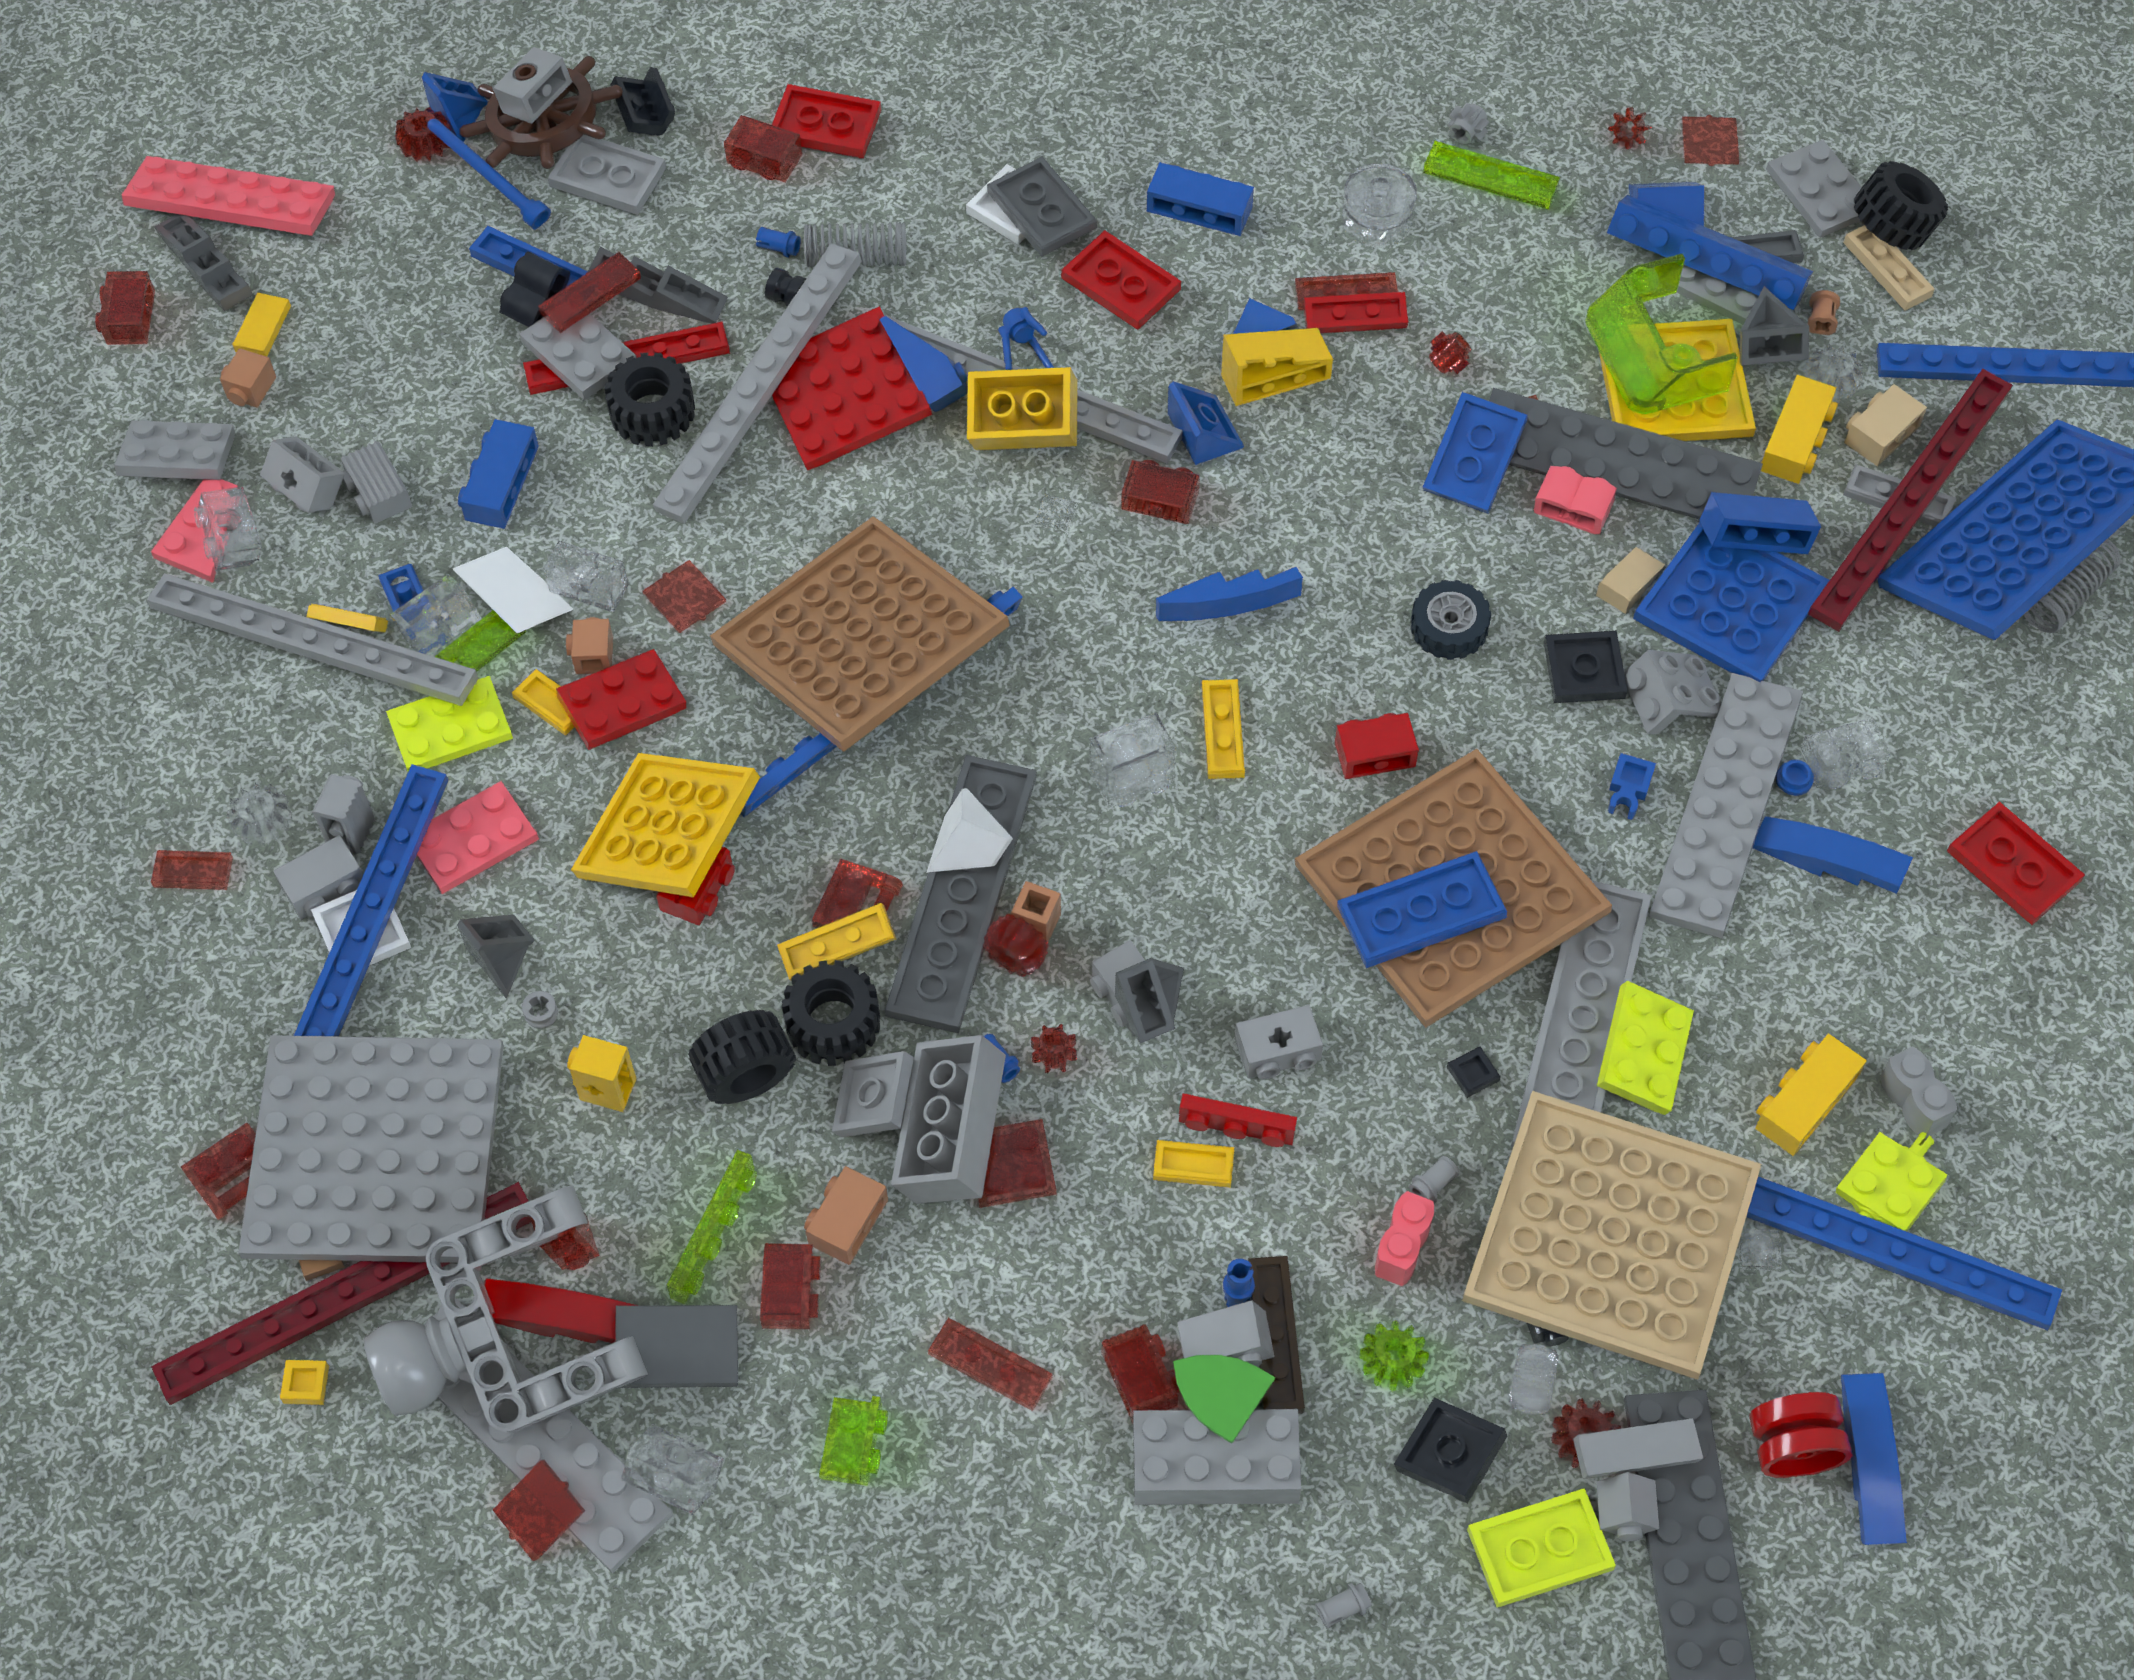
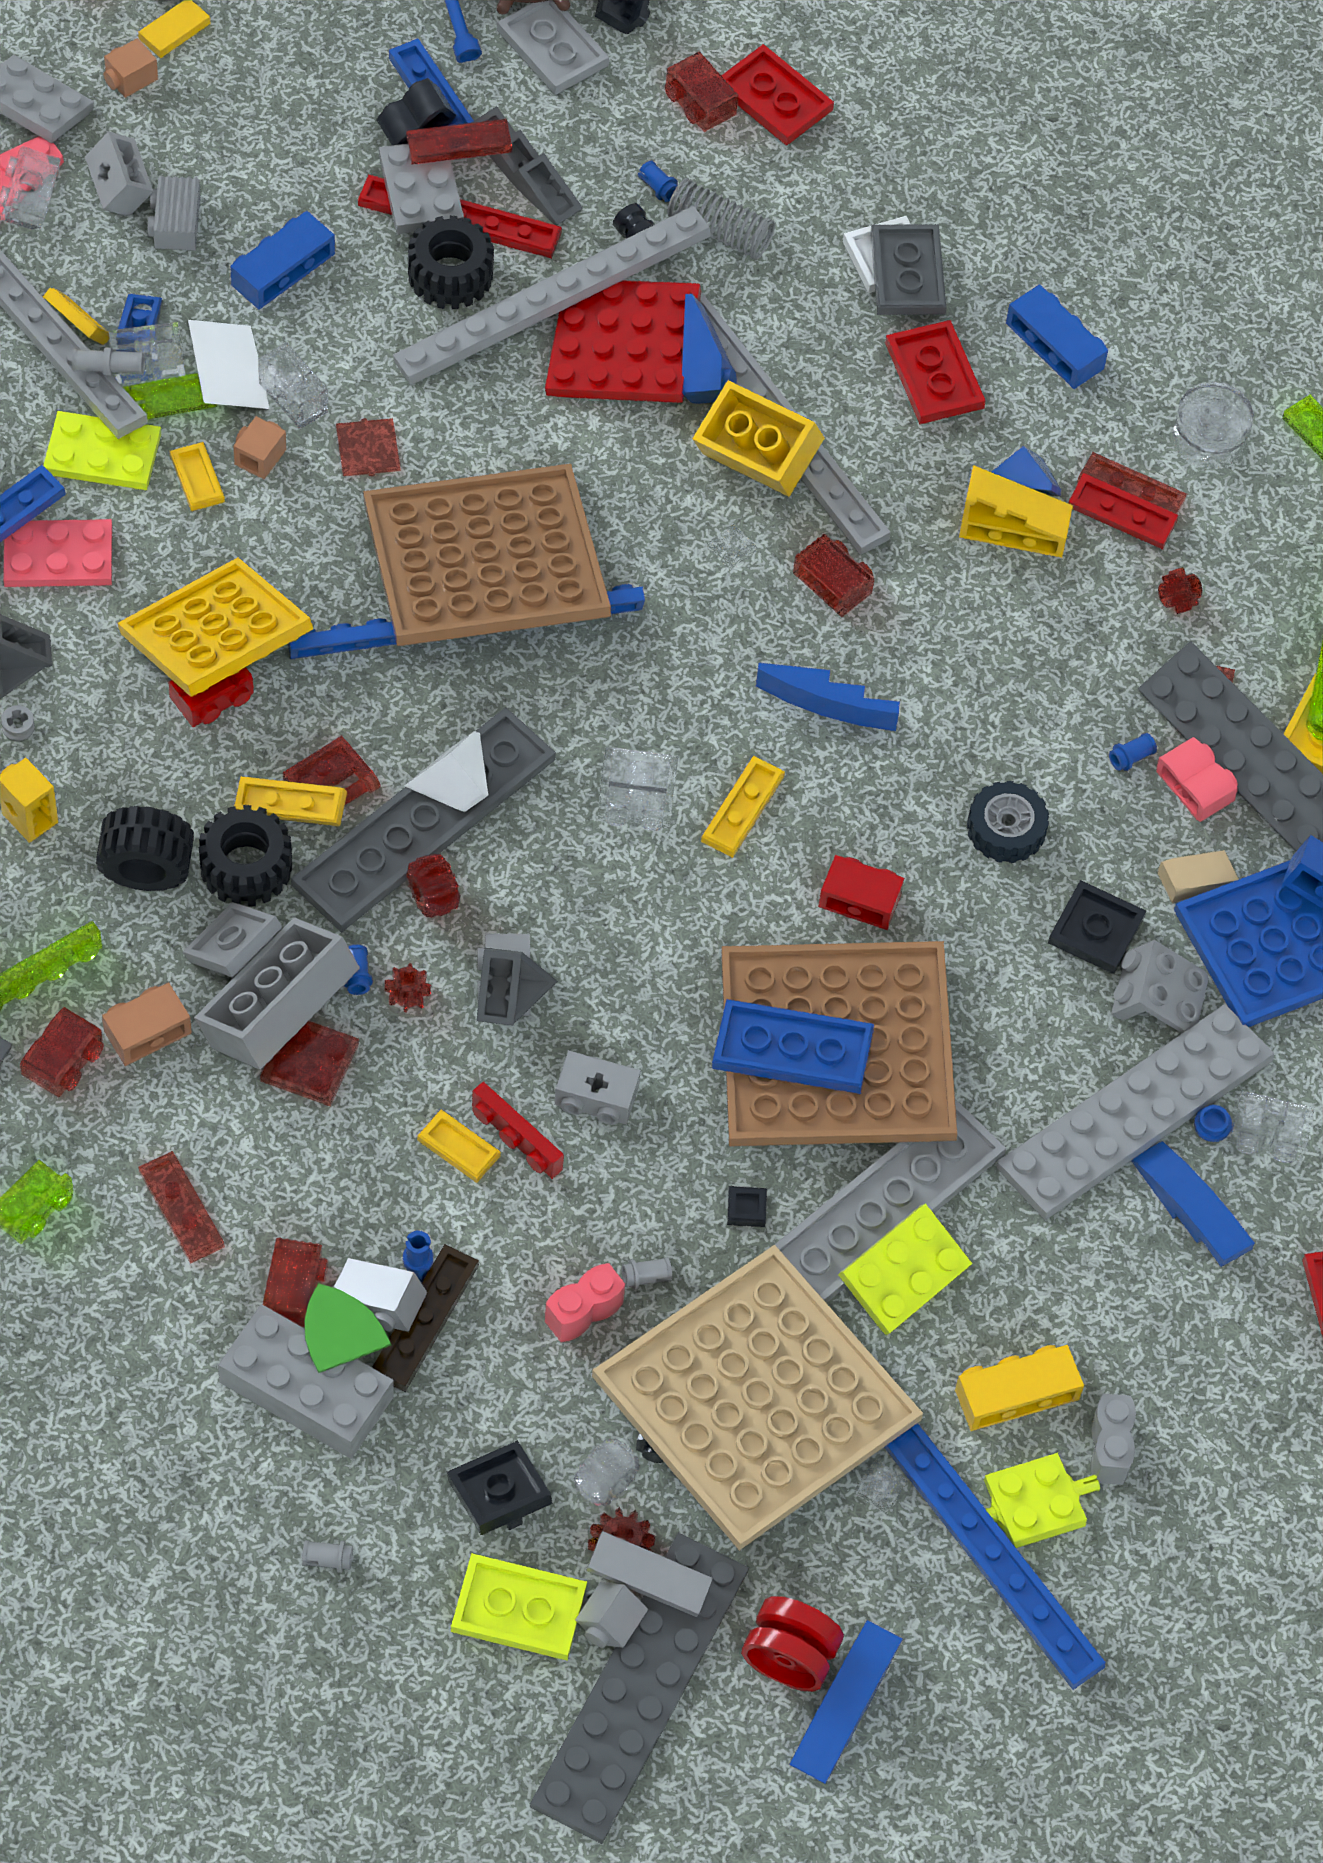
camera: 25 degrees right, 0 degrees up
(410, 641) = (108, 361): none -> light grey pin
(621, 699) = (255, 505): red plate -> none
(1020, 327) = (813, 370): blue plant -> none
(1038, 907) = (472, 867): nougat brick -> none
(1203, 423) = (916, 535): blue slope -> none
(1379, 1359) = (508, 1402): clear neon green gear -> none
(1475, 452) = (1133, 689): blue plate -> none
(1506, 506) = (1126, 755): none -> blue pin
(1630, 783) = (1061, 1044): blue plate -> none

